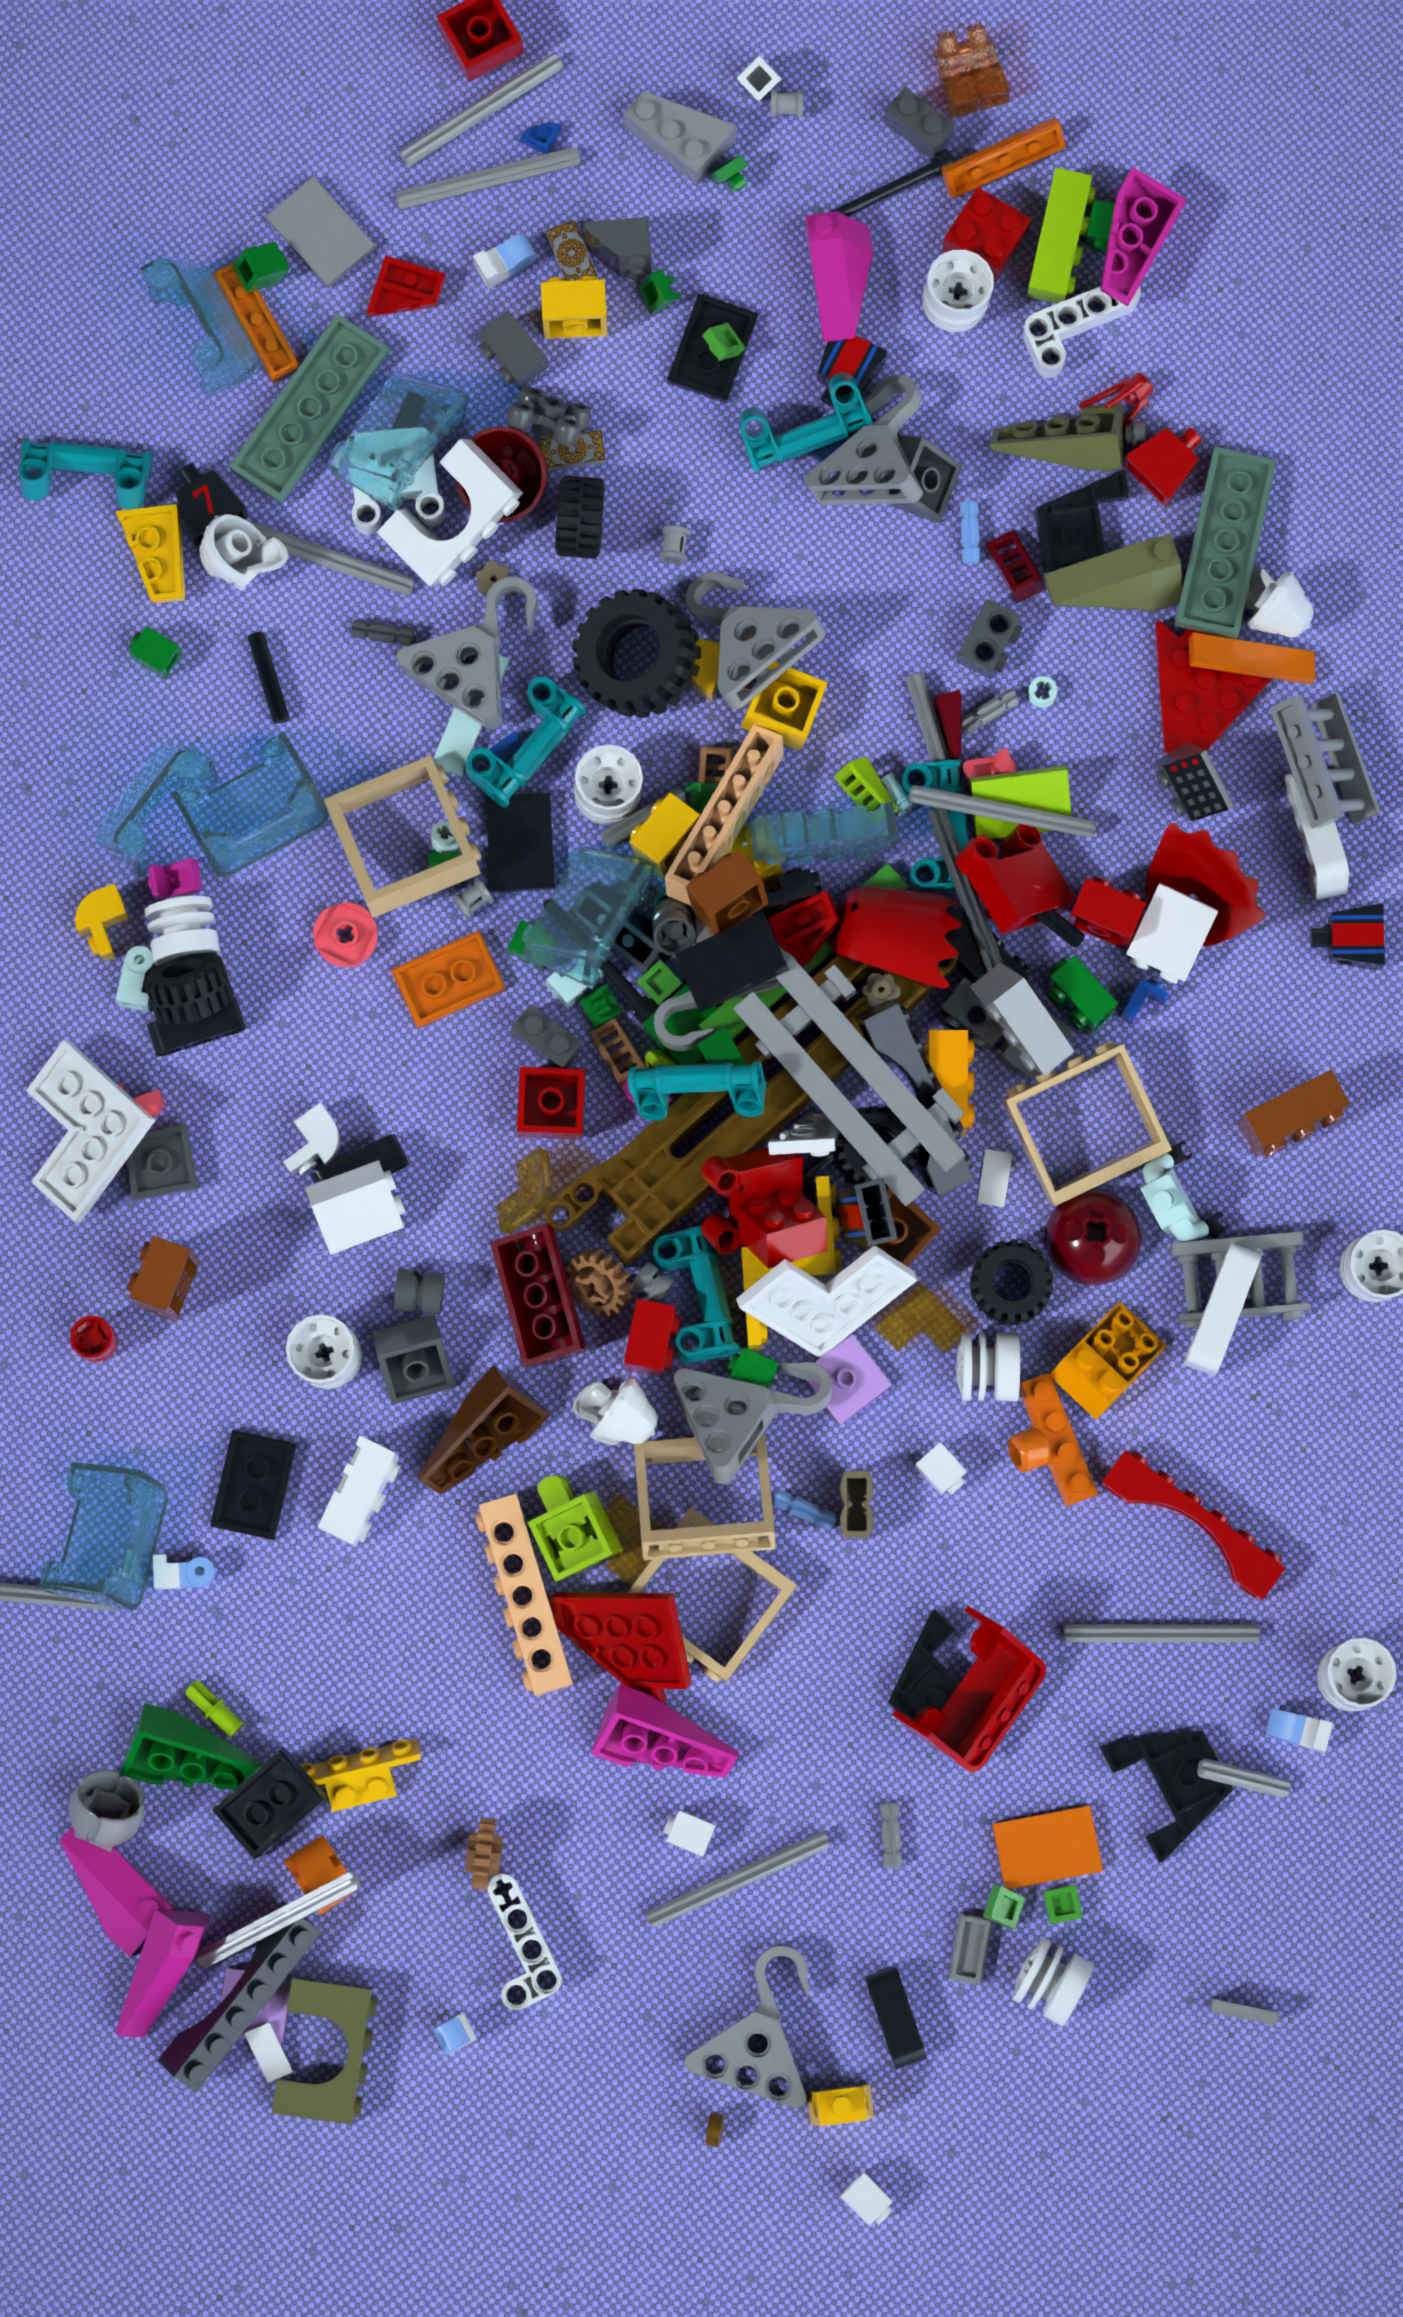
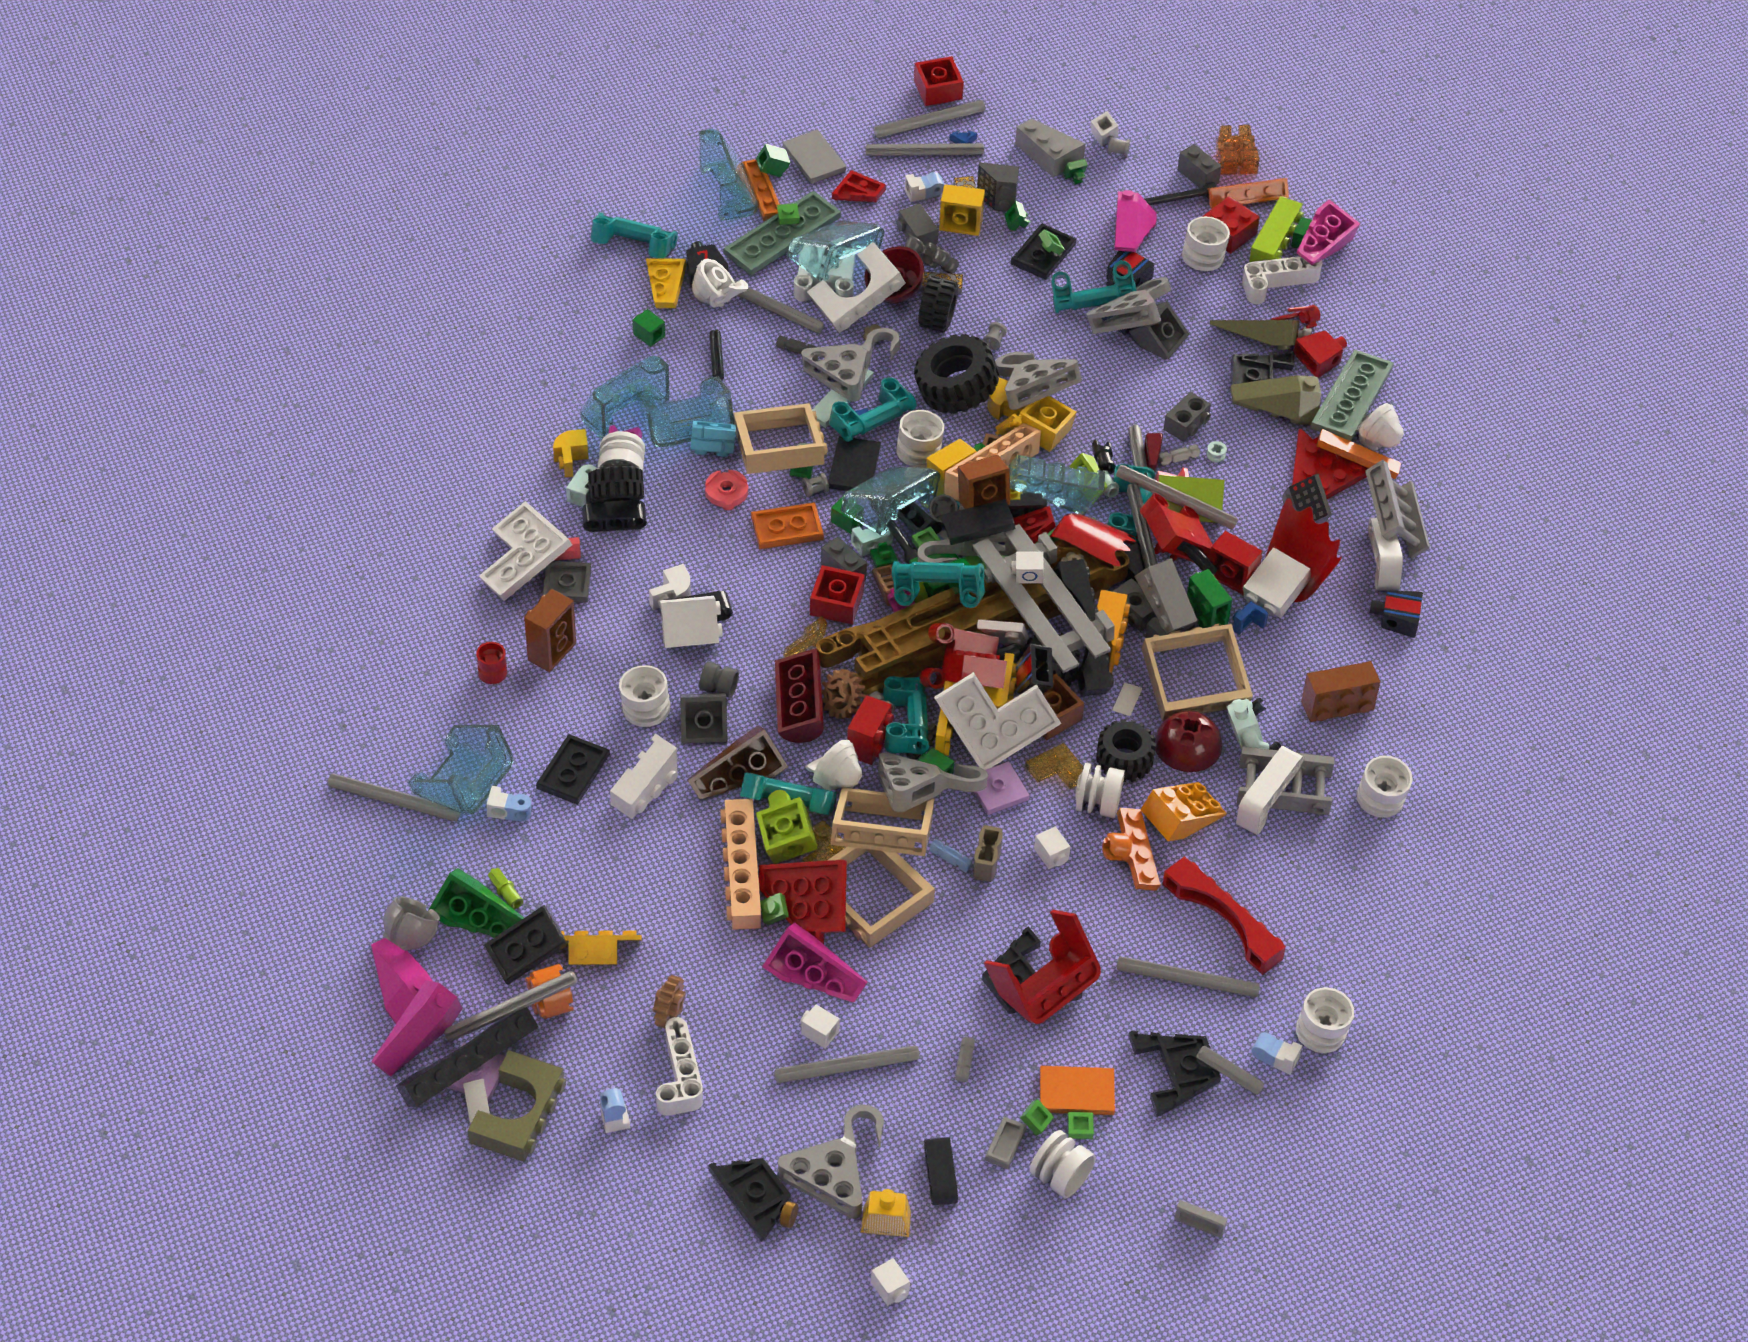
camera: 10 degrees right, 30 degrees down
(304, 851) = (713, 438): none -> medium azure brick
(311, 376) = (788, 214): none -> bright green plate
(586, 1660) = (774, 909): none -> bright green plate
(607, 1466) = (817, 799): none -> teal piece
(661, 2105) = (754, 1192): none -> black wing
(731, 726) = (1008, 424): none -> yellow axle
(823, 1044) = (1028, 567): none -> white brick
(880, 745) = (1103, 456): none -> black piece
(970, 532) = (1186, 366): light blue axle -> none
(1024, 584) = (1213, 390): dark red slope -> none

